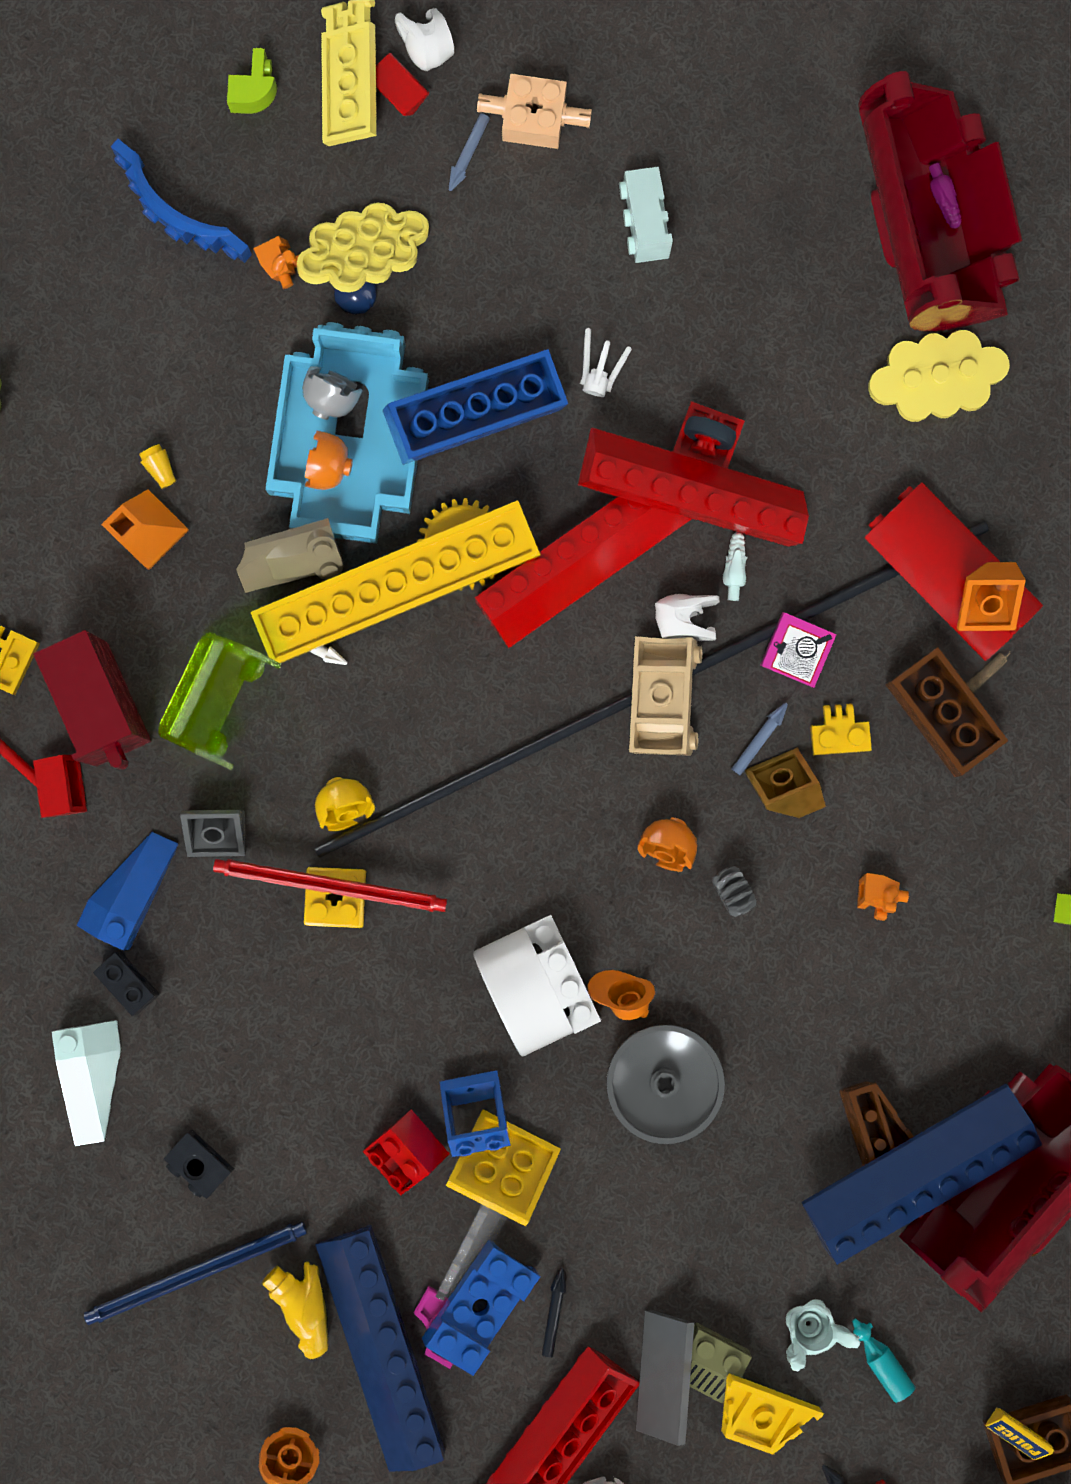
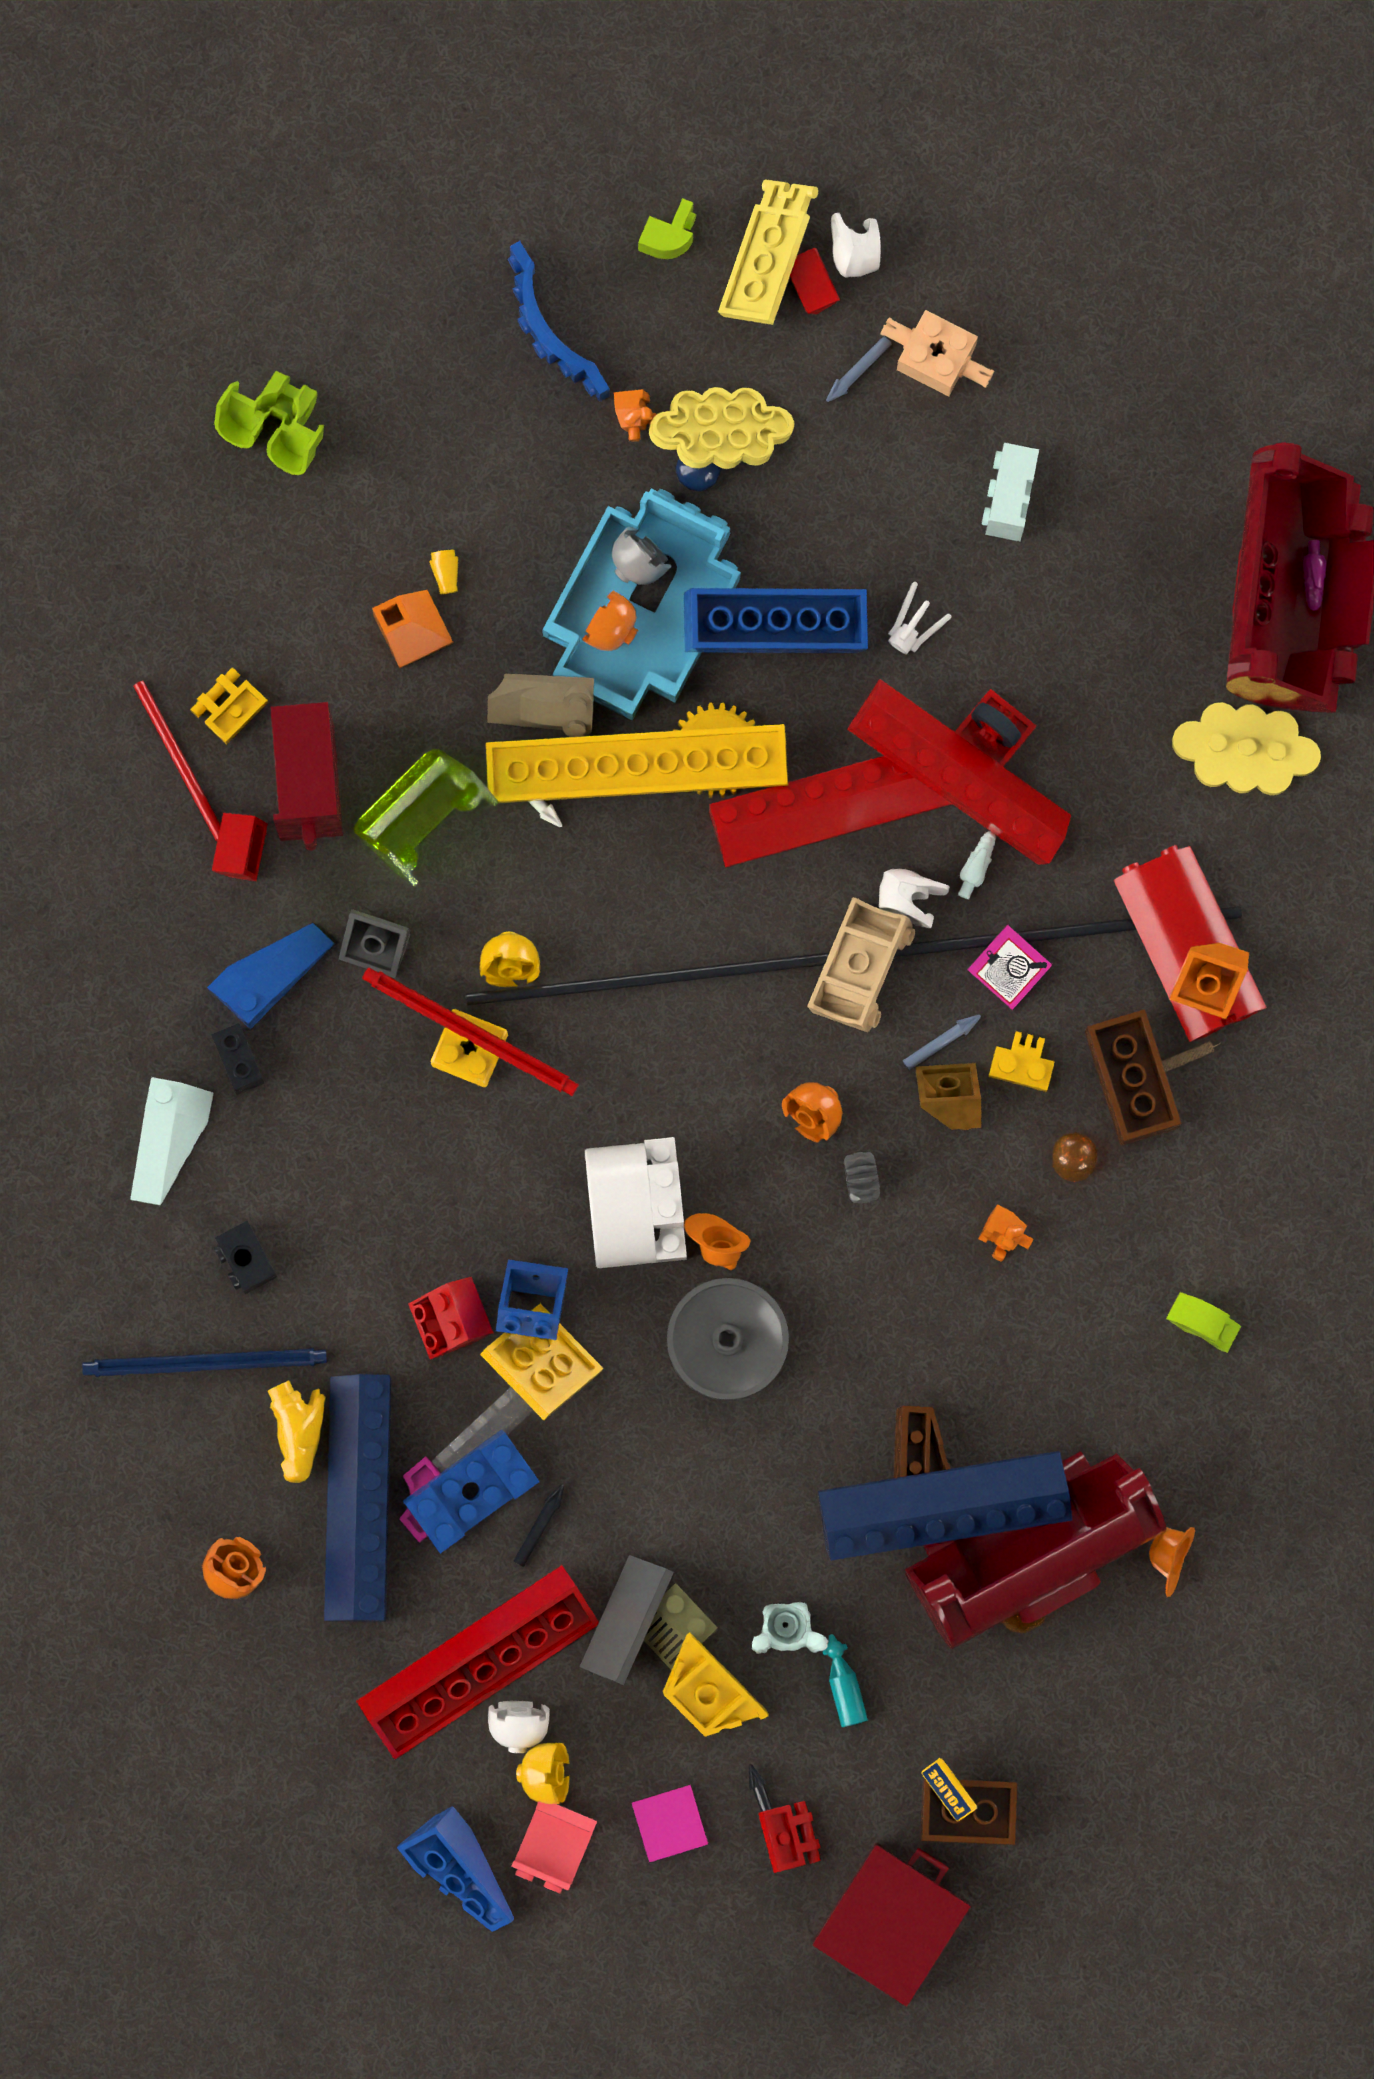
camera: 20 degrees right, 5 degrees down
(917, 801) = (1074, 1157): none -> clear orange hair

